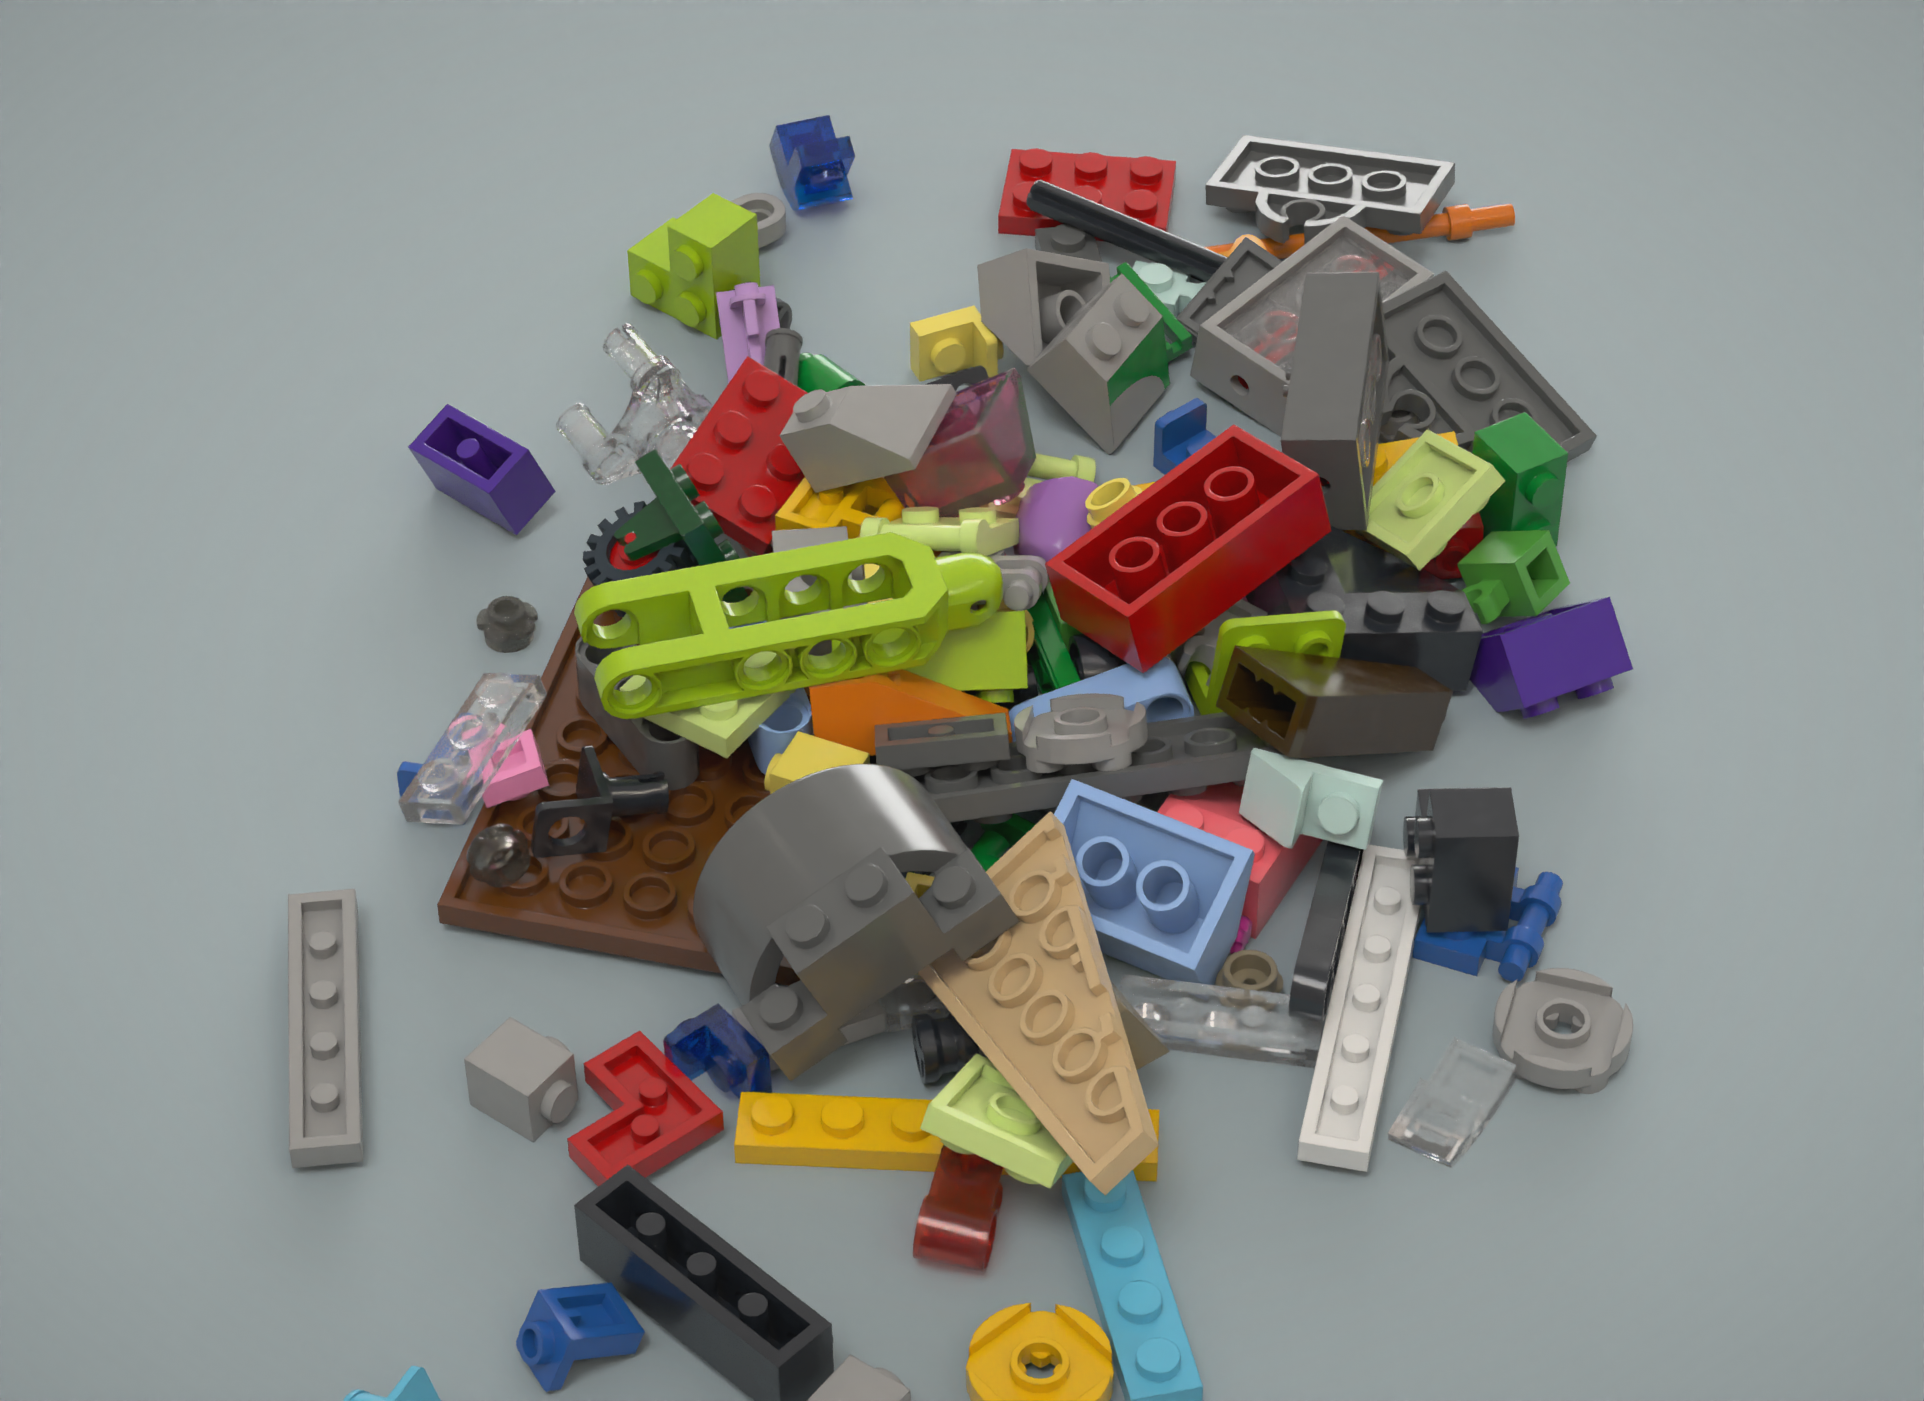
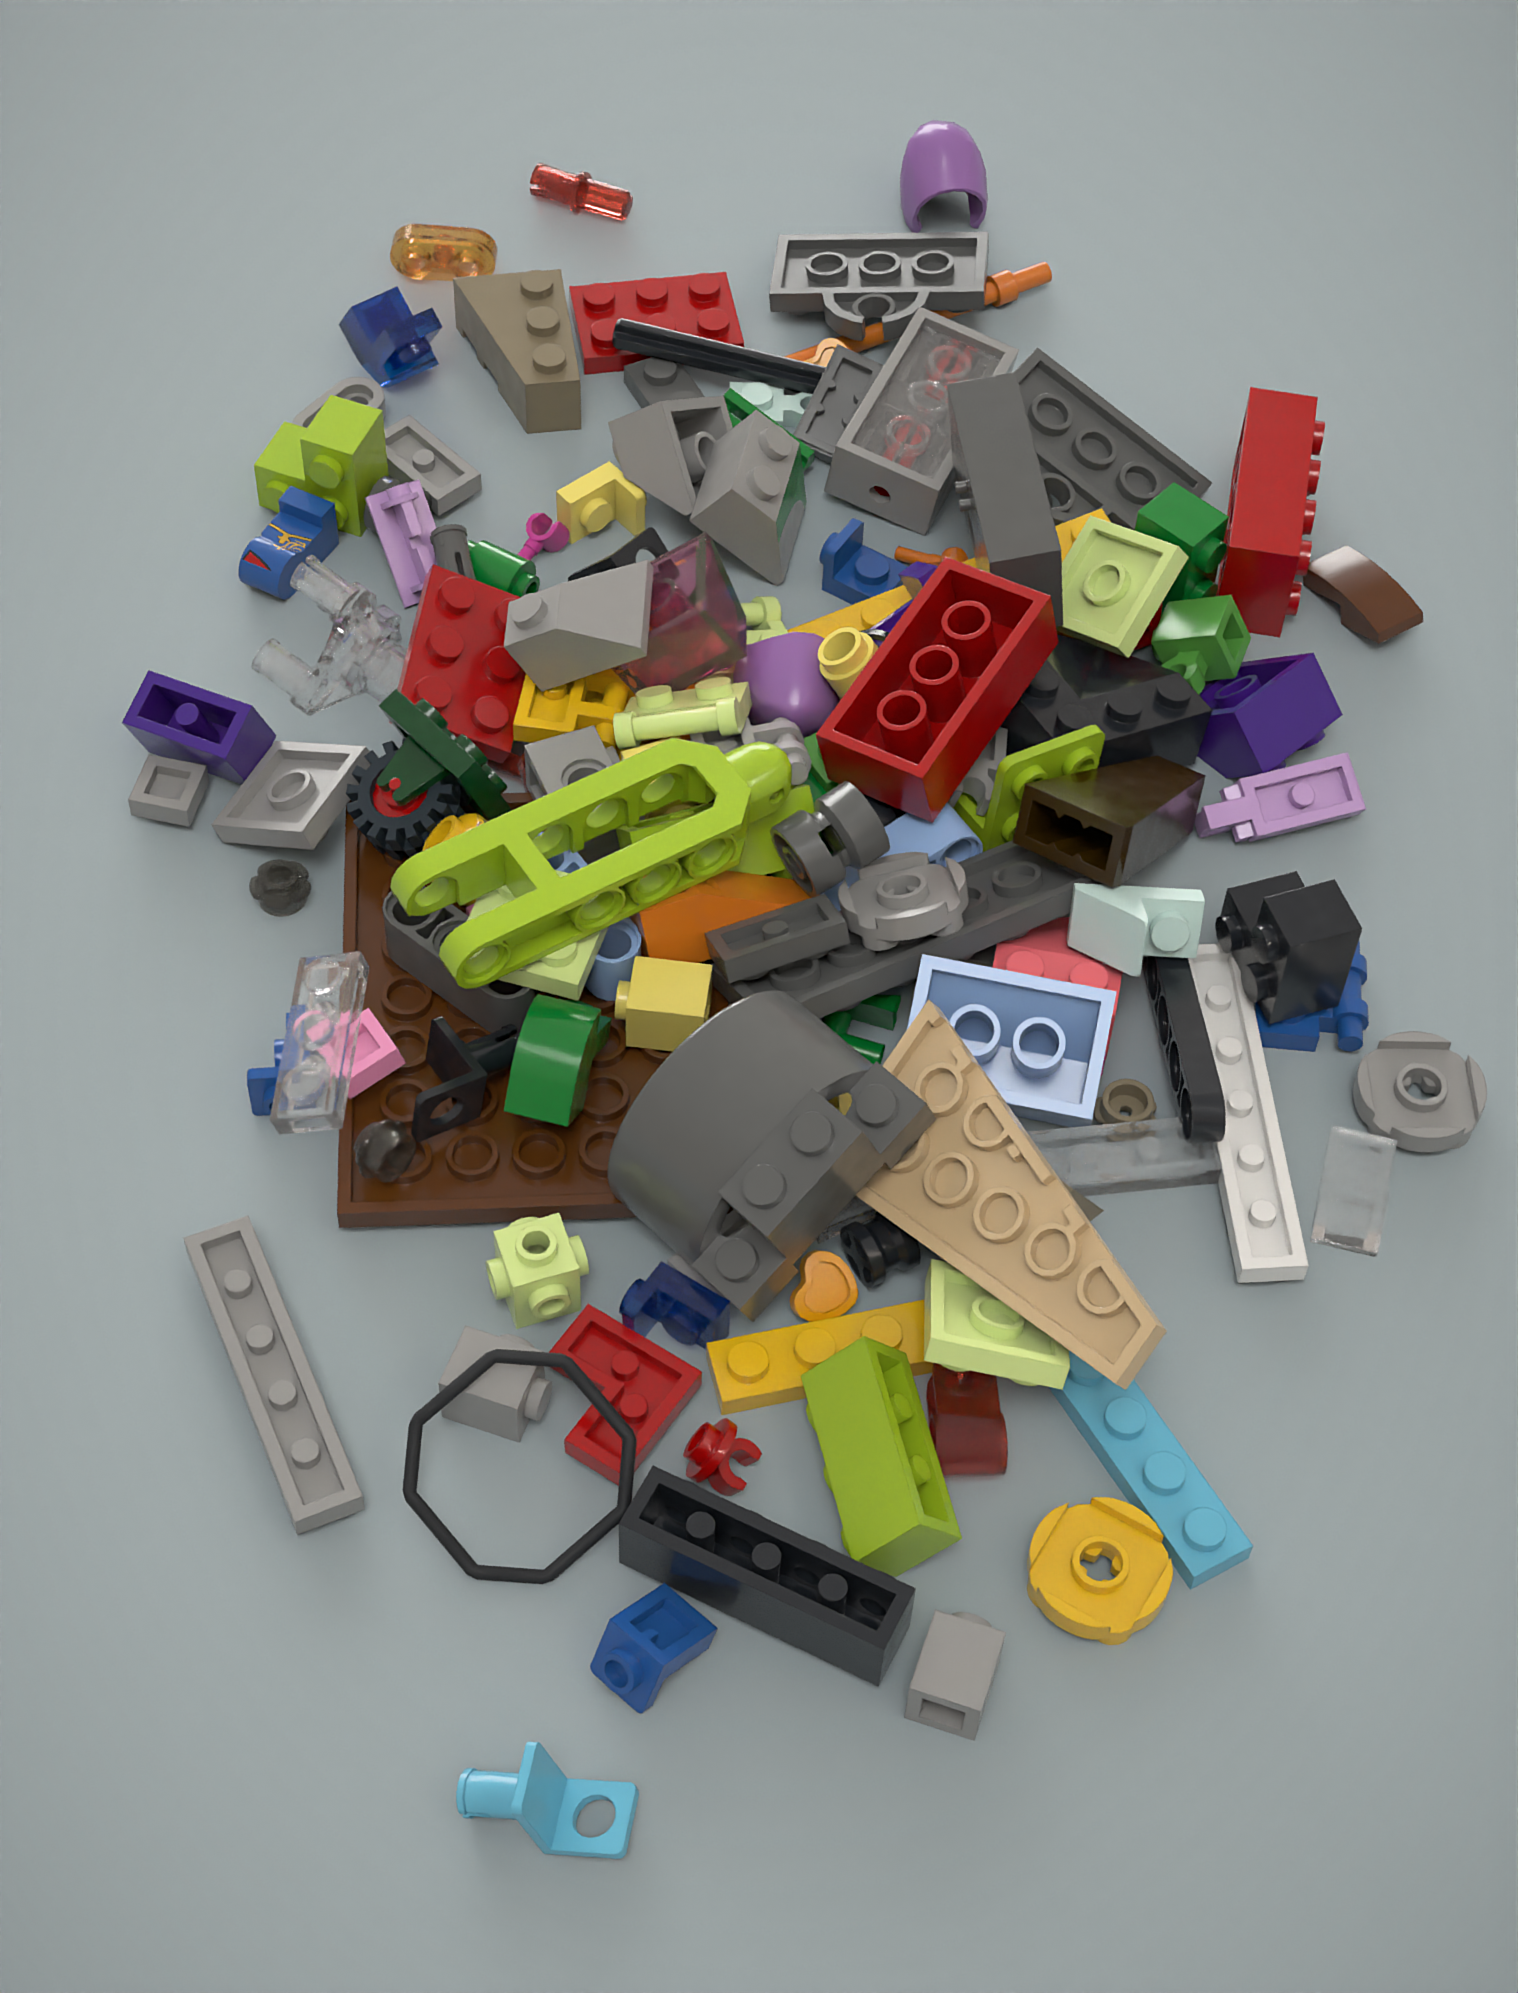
camera: 20 degrees left, 10 degrees up
(436, 520) = (168, 790): none -> light grey plate
(467, 1069) = (581, 1546): none -> black piece
(541, 544) = (291, 795): none -> light grey plate
(602, 991) = (537, 1269): none -> yellowish green brick
(659, 315) = (300, 529): none -> blue leg
(685, 805) = (555, 1059): none -> green brick
(704, 1182) = (710, 1455): none -> red plate
(802, 283) = (420, 455): none -> light grey plate
(860, 1218) = (879, 1457): none -> lime brick
(878, 1068) = (825, 1287): none -> light orange piece
(892, 364) = (551, 542): none -> dark pink hand
(893, 95) = (442, 252): none -> clear orange plate
(945, 191) = (525, 342): none -> dark tan wedge
(1048, 655) = (847, 826): none -> dark grey wheel
(1061, 66) = (580, 192): none -> clear red axle
(1431, 92) = (940, 161): none -> medium lavender piece
(1539, 738) = (1284, 800): none -> lavender hinge
(1633, 465) = (1271, 508): none -> red brick
(1715, 567) = (1366, 593): none -> reddish brown slope

